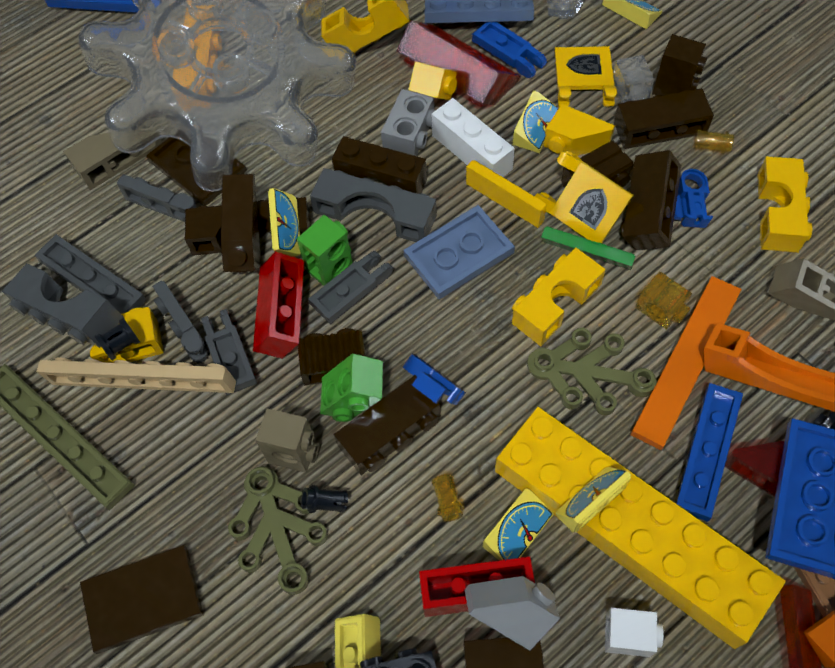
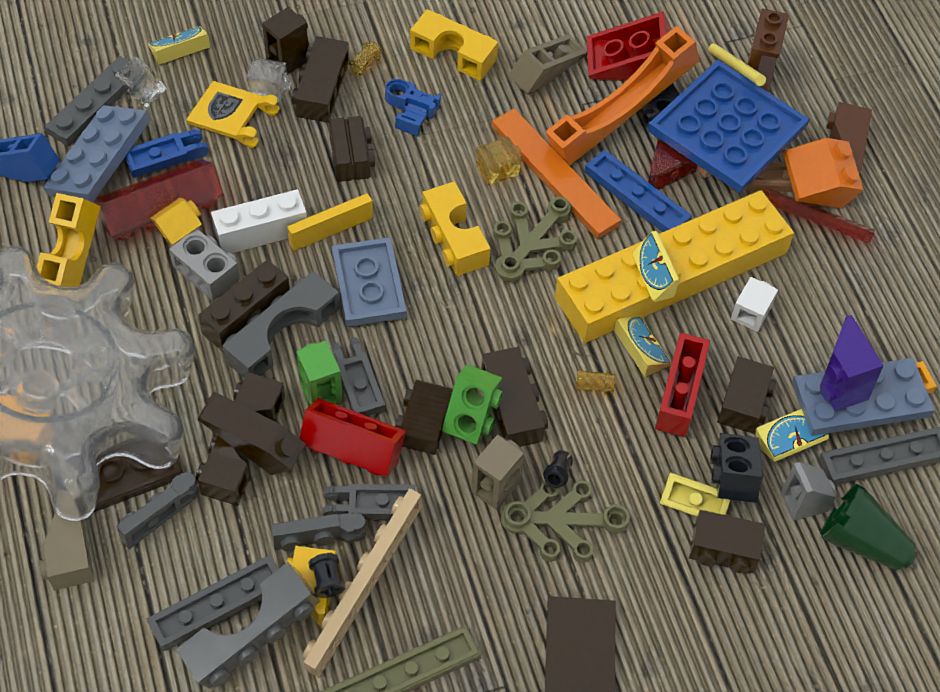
camera: 75 degrees left, 5 degrees down
(284, 222) = (273, 398): slope -> none
(431, 382) = (500, 342): blue piece -> none
(514, 608) = (719, 352): light grey slope -> none
(533, 123) = (263, 170): slope -> none
(576, 132) = (296, 145): yellow slope -> none
(589, 200) = (380, 163): yellow flag -> none
(590, 248) = (424, 184): green tile -> none
(654, 201) = (405, 122): dark brown brick -> none

